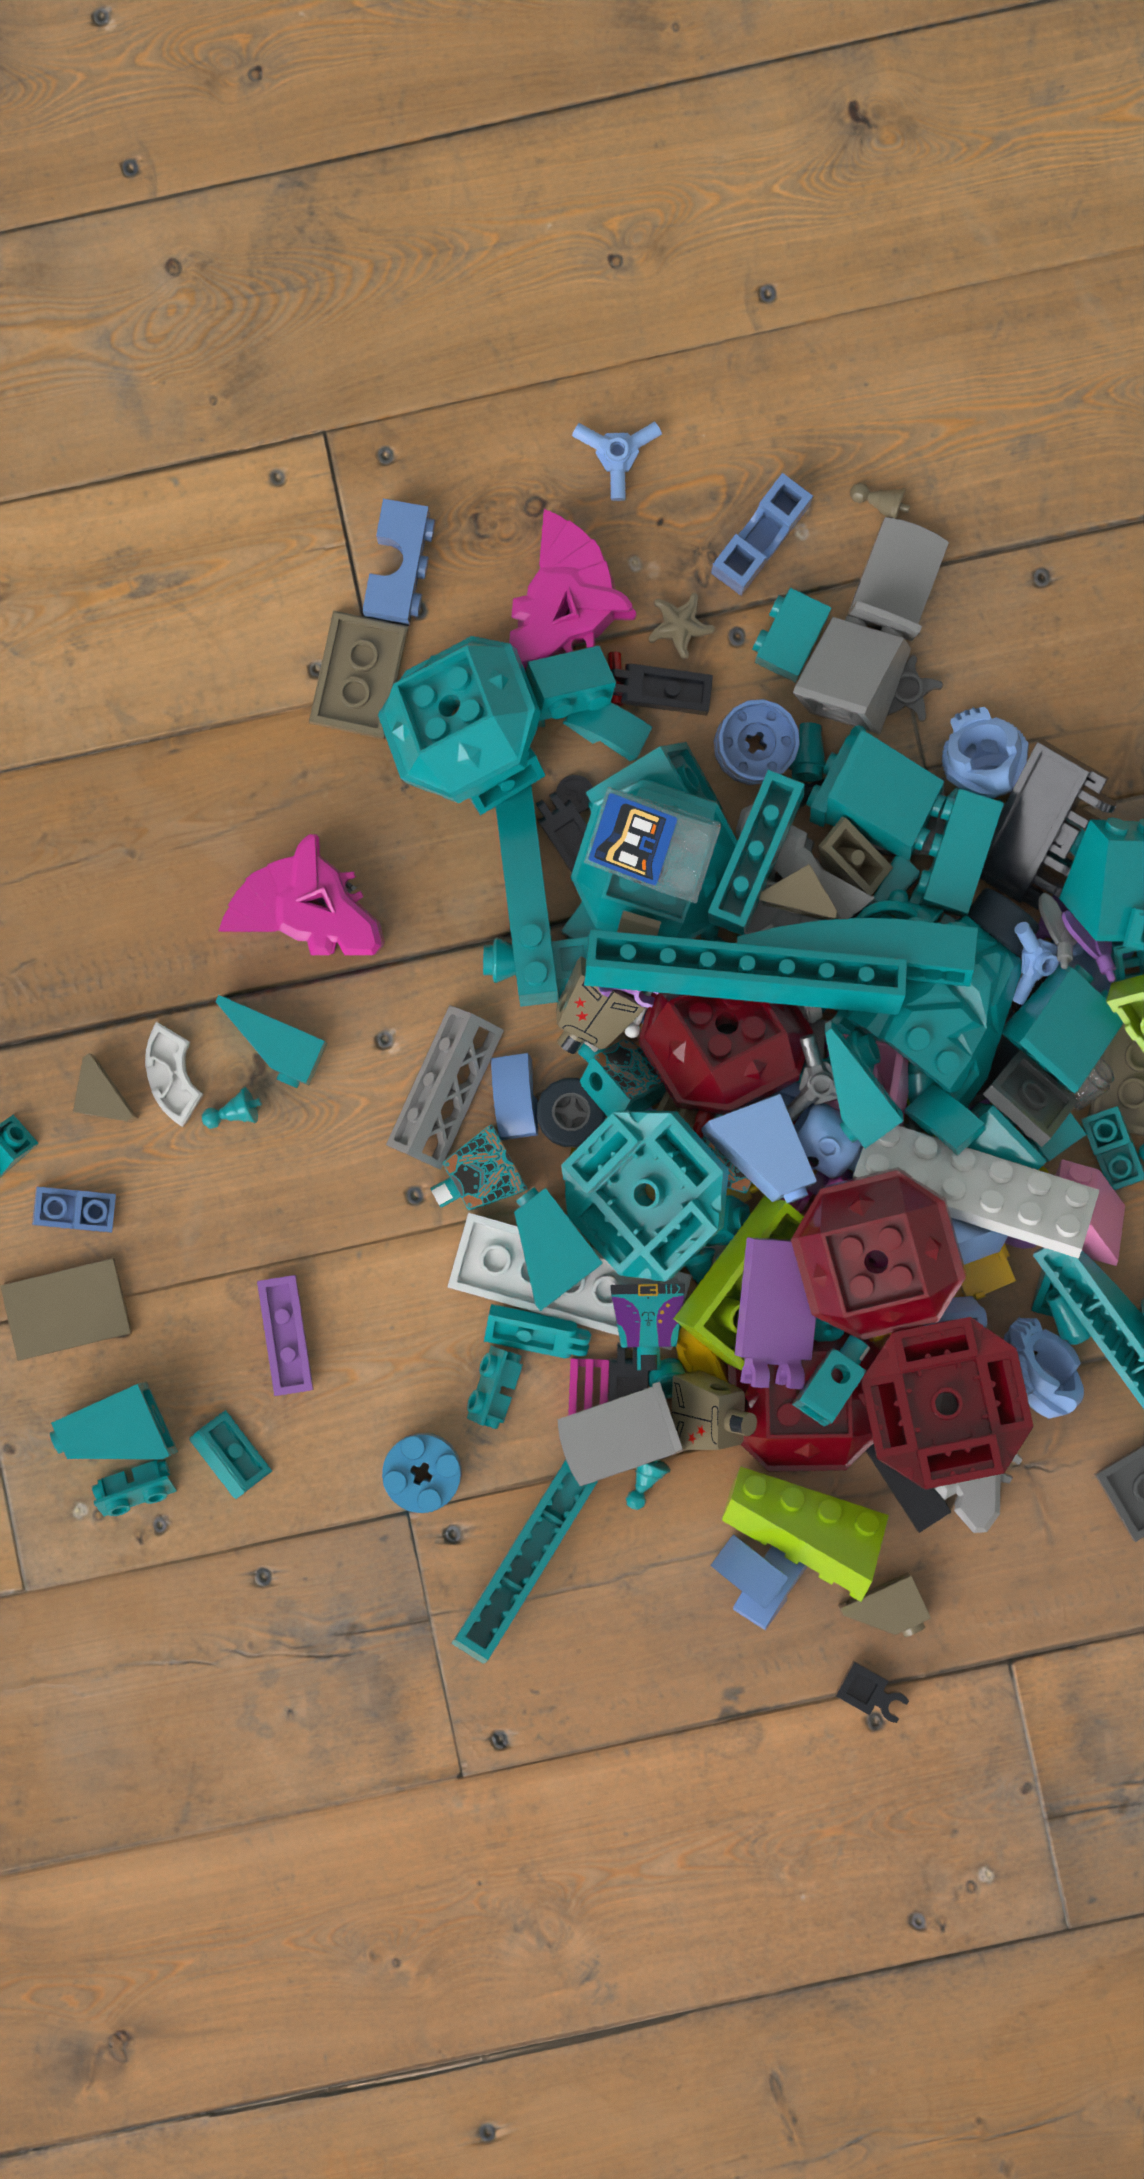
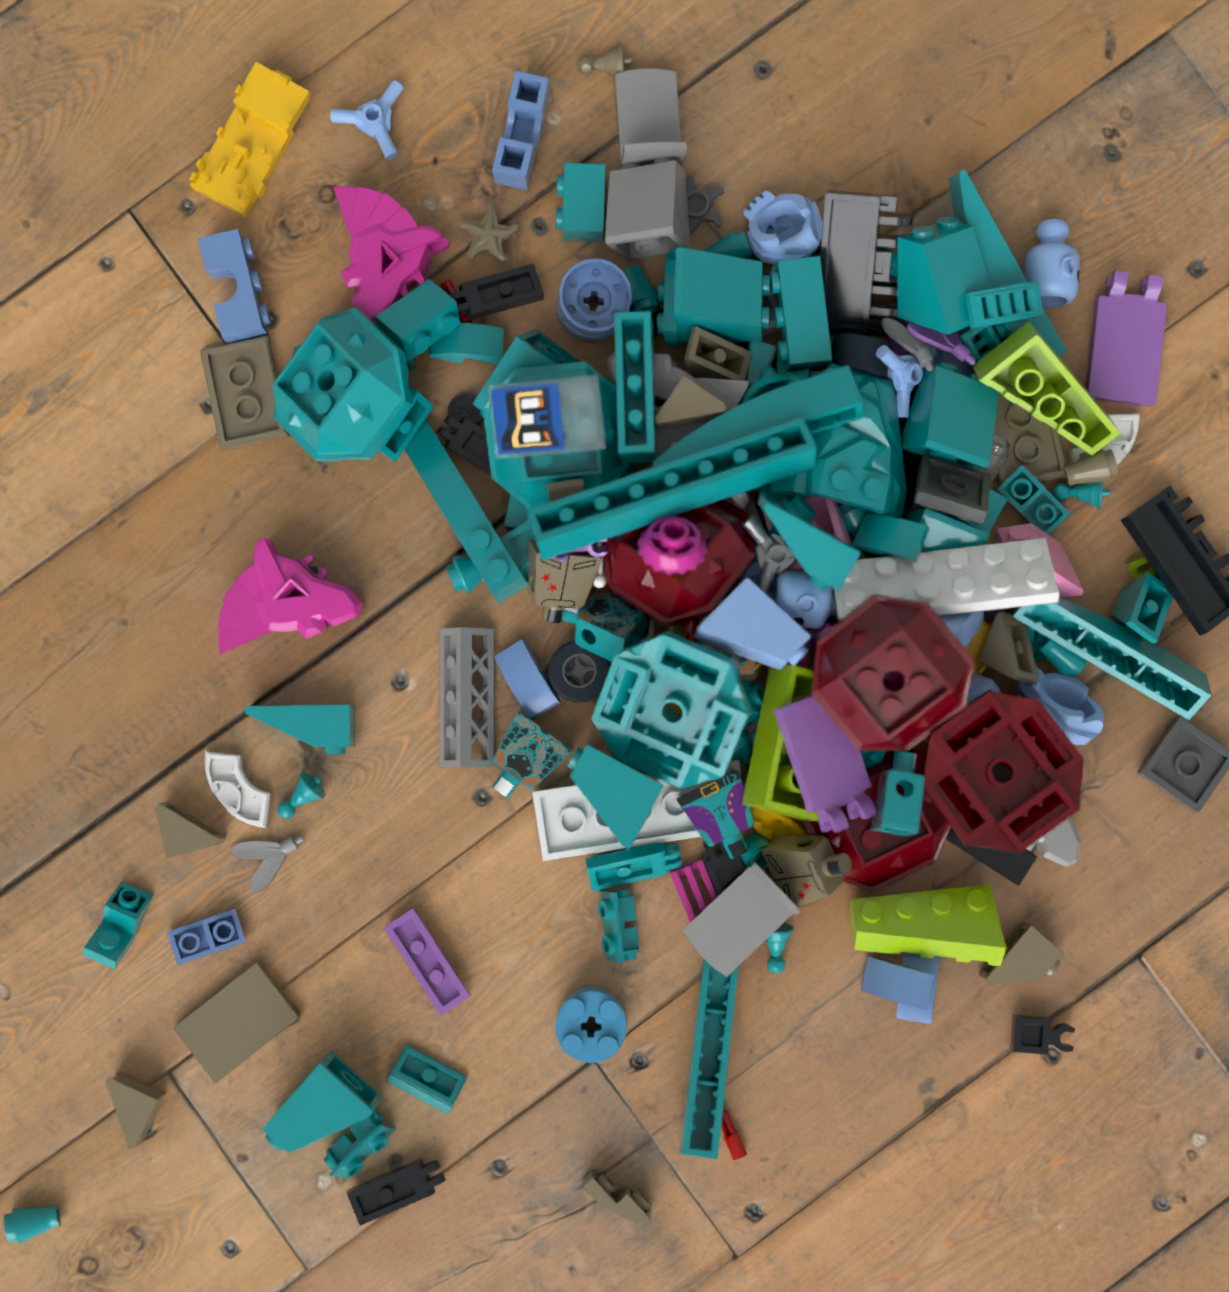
camera: 30 degrees left, 0 degrees up
(148, 1549) = (394, 1190): none -> black hinge
(177, 1158) = (273, 855): none -> light grey piece
(377, 1670) = (626, 1203): none -> dark tan slope
(481, 418) = (251, 140): none -> yellow piece
(511, 1653) = (732, 1137): none -> red pin
(719, 1029) = (672, 545): none -> dark pink piece
(921, 749) = (732, 245): none -> teal cone
(1015, 1287) = (1009, 649): none -> dark tan slope

